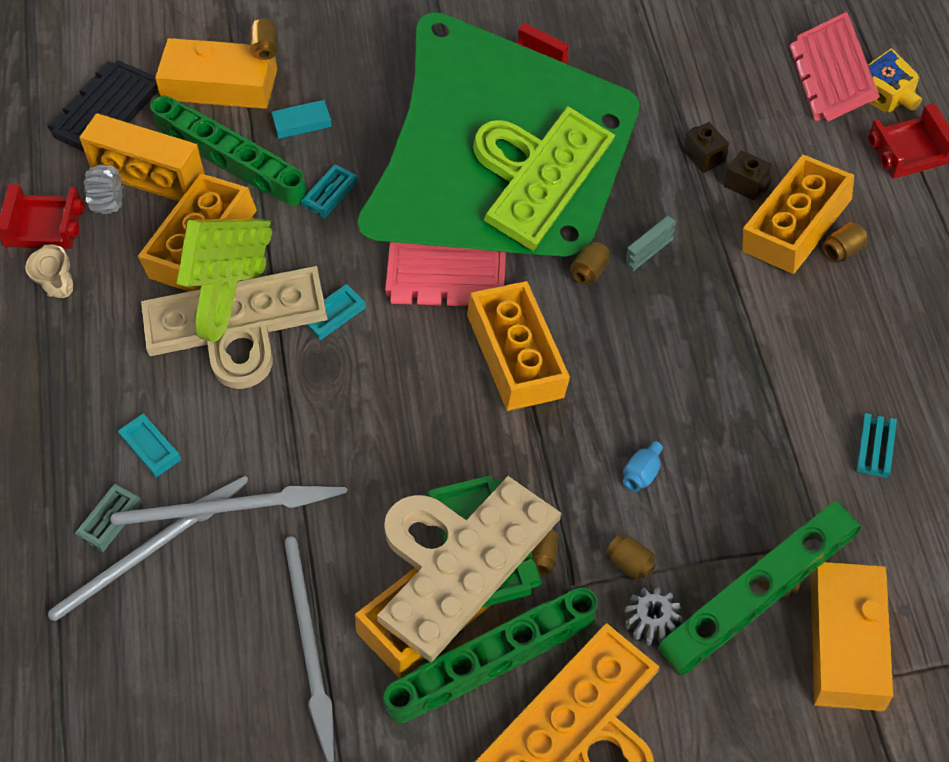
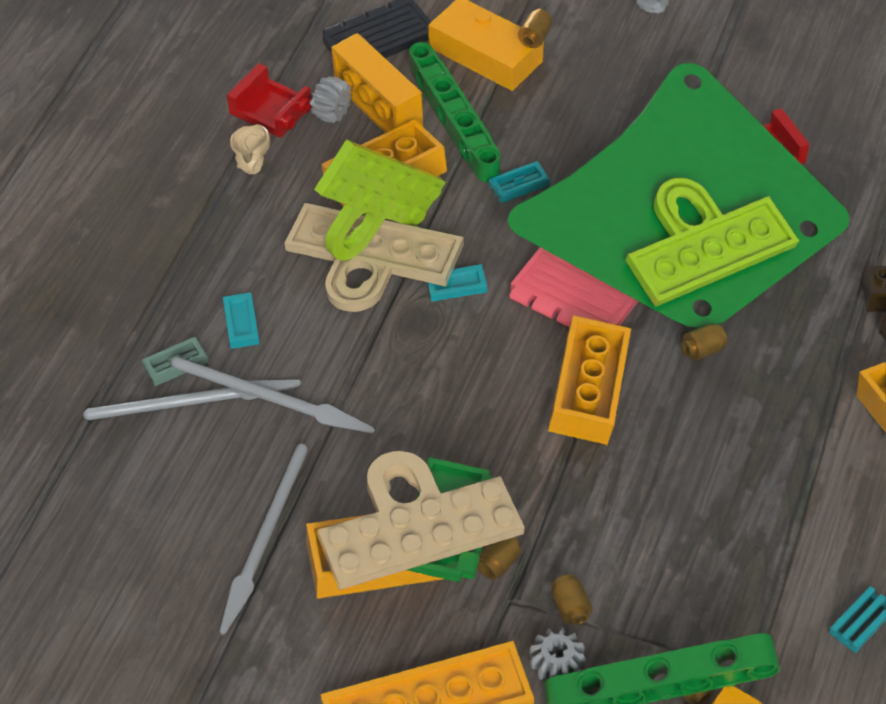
camera: 30 degrees right, 5 degrees down
(301, 119) = (534, 111): teal tile -> none
(490, 655) = (402, 616): green beam -> none
(642, 467) = (633, 533): dark azure plant -> none
(650, 243) = (770, 349): sand green tile -> none

